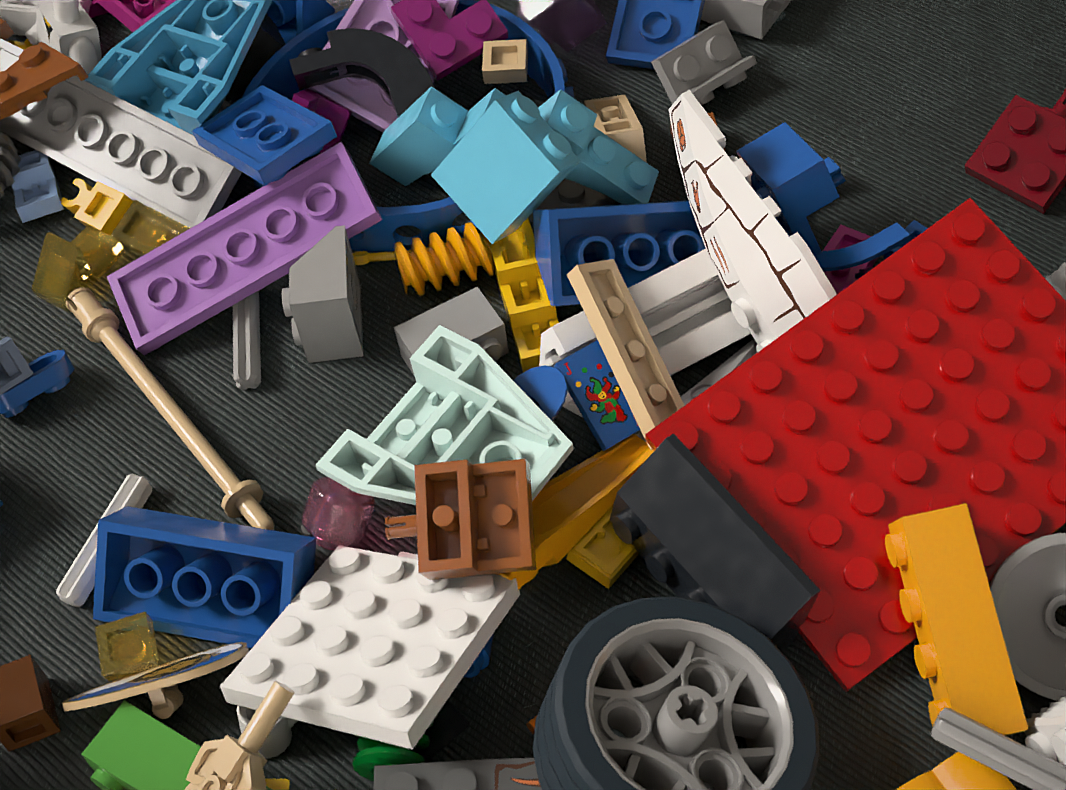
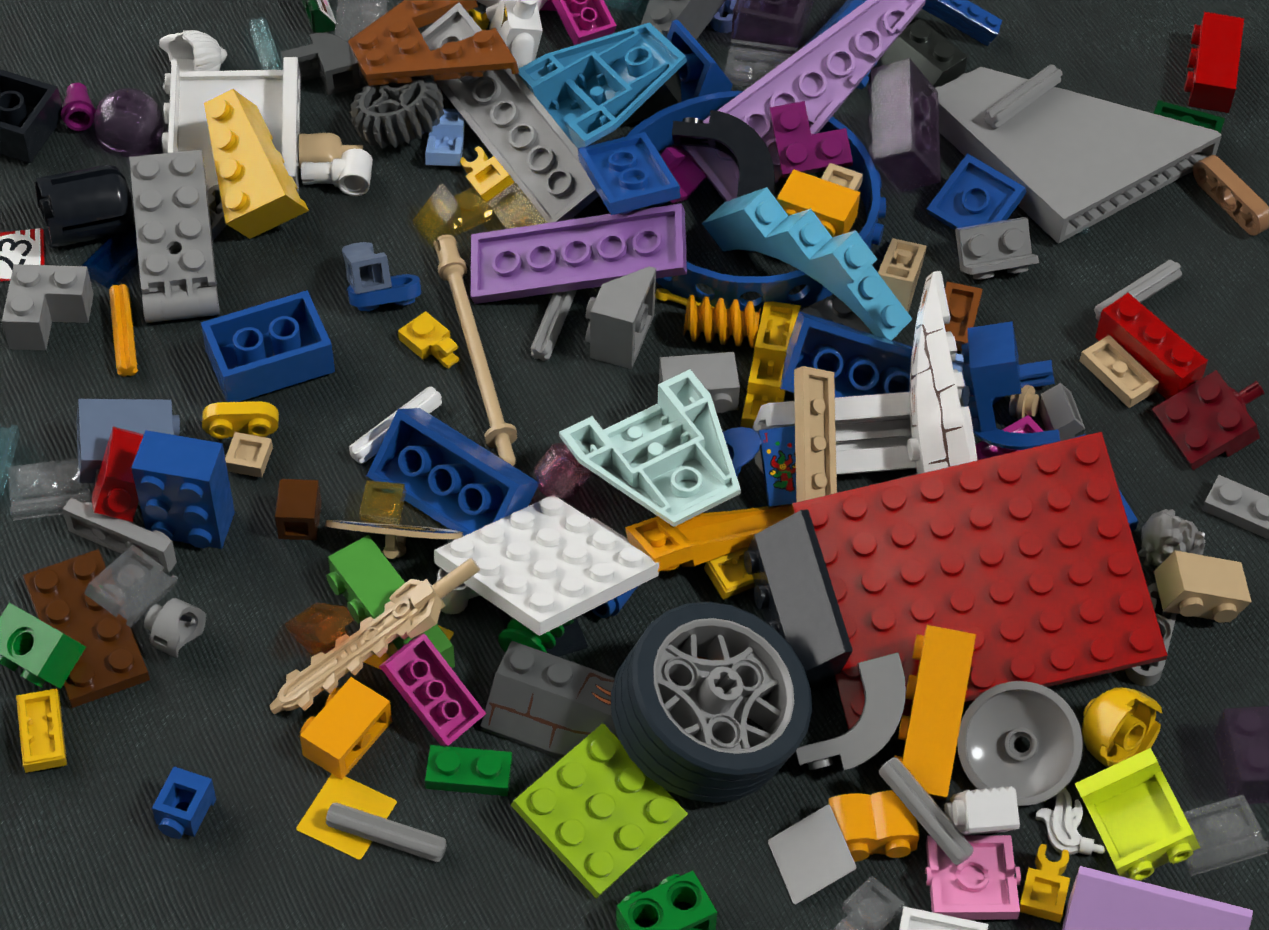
camera: 15 degrees right, 0 degrees up
(103, 415) = (427, 337): none -> yellow plate
(470, 519) = (645, 509): dark orange plate -> none
(474, 78) = (831, 203): none -> light orange brick
(505, 166) = (790, 272): medium azure brick -> none
(828, 218) = (1024, 403): none -> tan plate
(869, 208) = (1060, 412): none -> light grey piece
(873, 54) = (1146, 285): none -> light grey axle
(888, 667) = (883, 707): none -> light grey arch
(906, 140) = (1119, 371): none -> tan plate
(926, 102) = (1152, 345): none -> red brick

